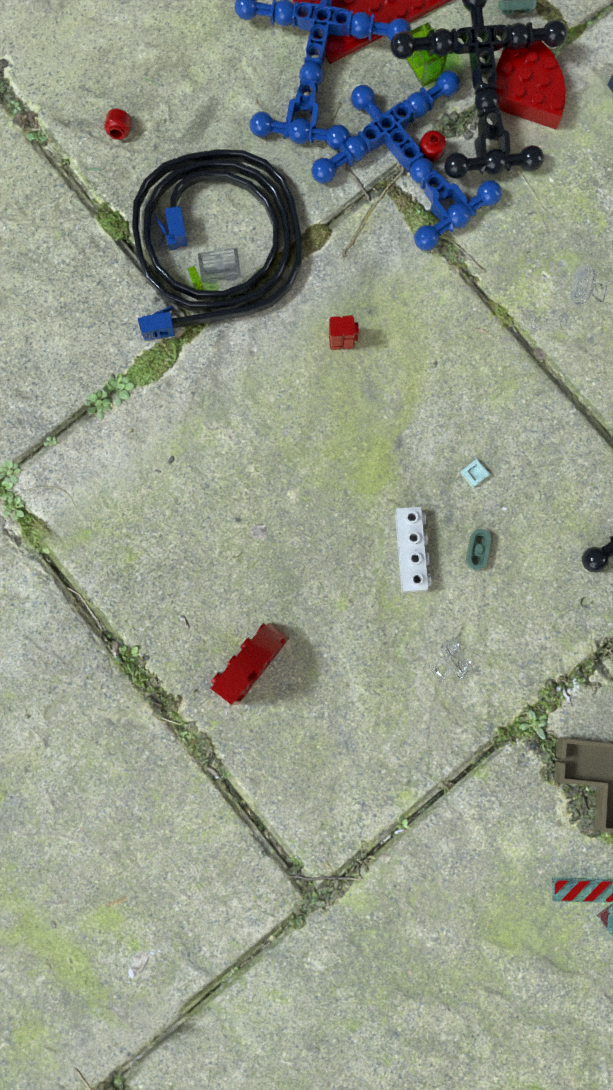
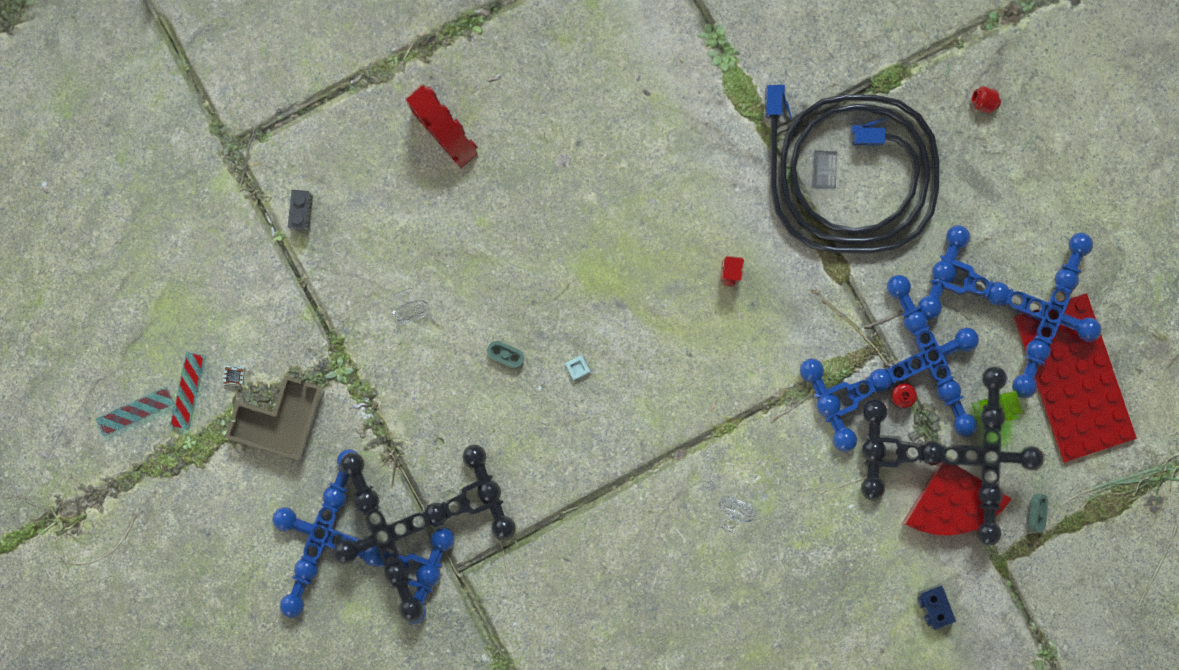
camera: 95 degrees right, 5 degrees up
(195, 278) = (813, 145): clear neon green tile -> none
(371, 805) = (299, 210): none -> dark grey brick
(411, 549) = (517, 293): white brick -> none
(567, 841) = (233, 375): none -> tile

